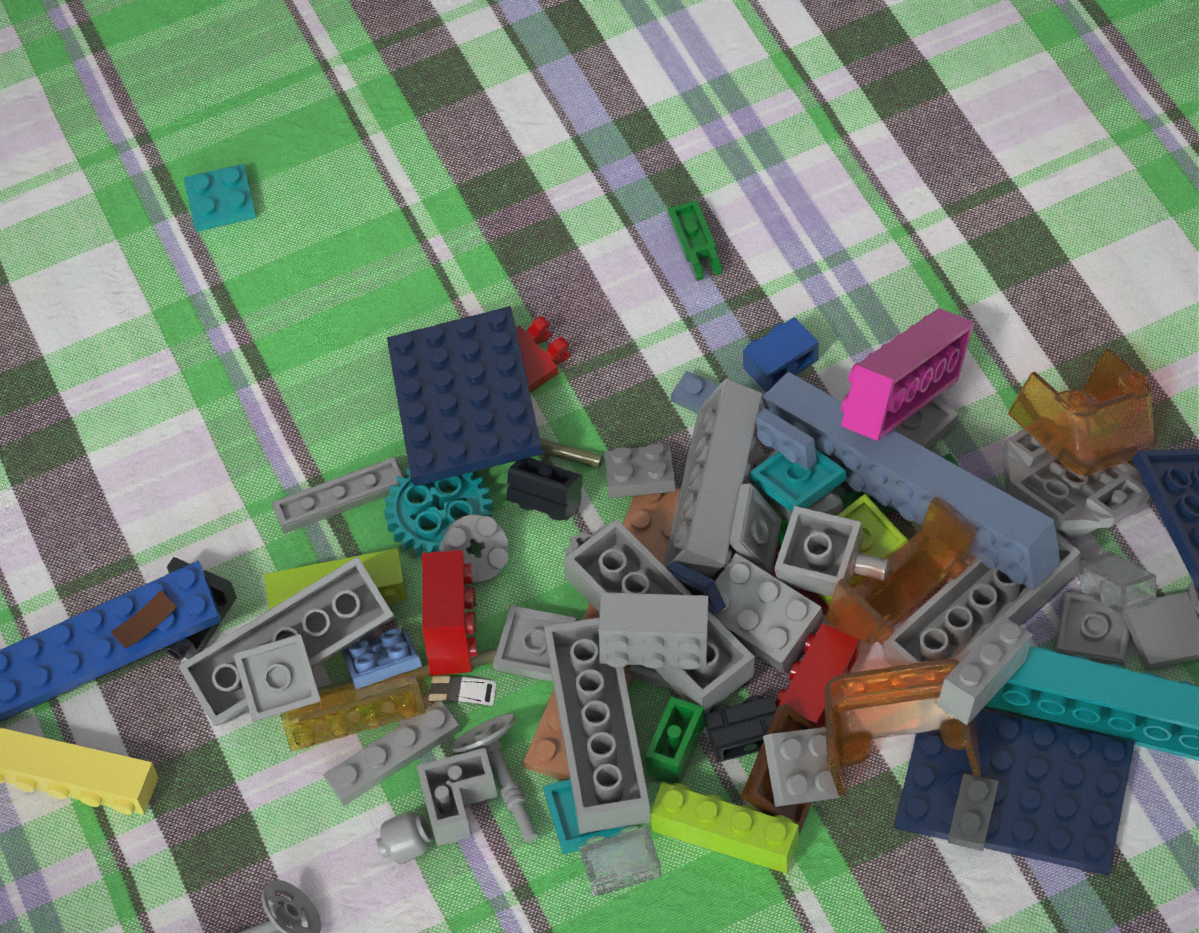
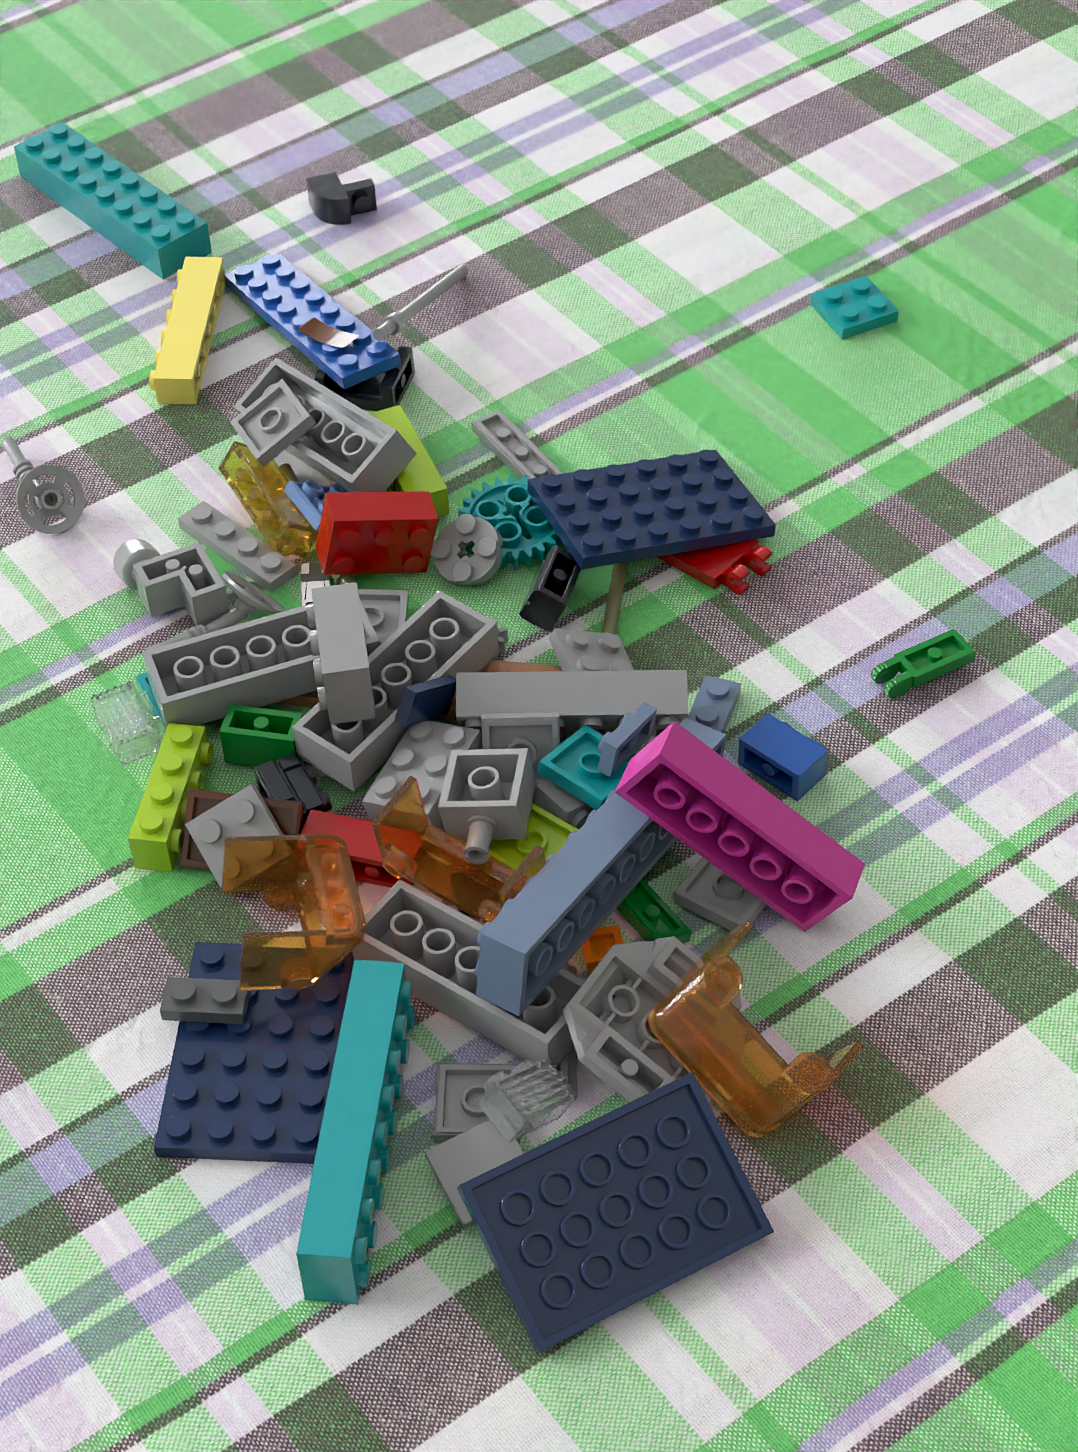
camera: 75 degrees right, 10 degrees down
(145, 558) = (396, 320): none -> light grey bar
(985, 670) = (334, 937): light grey brick -> none

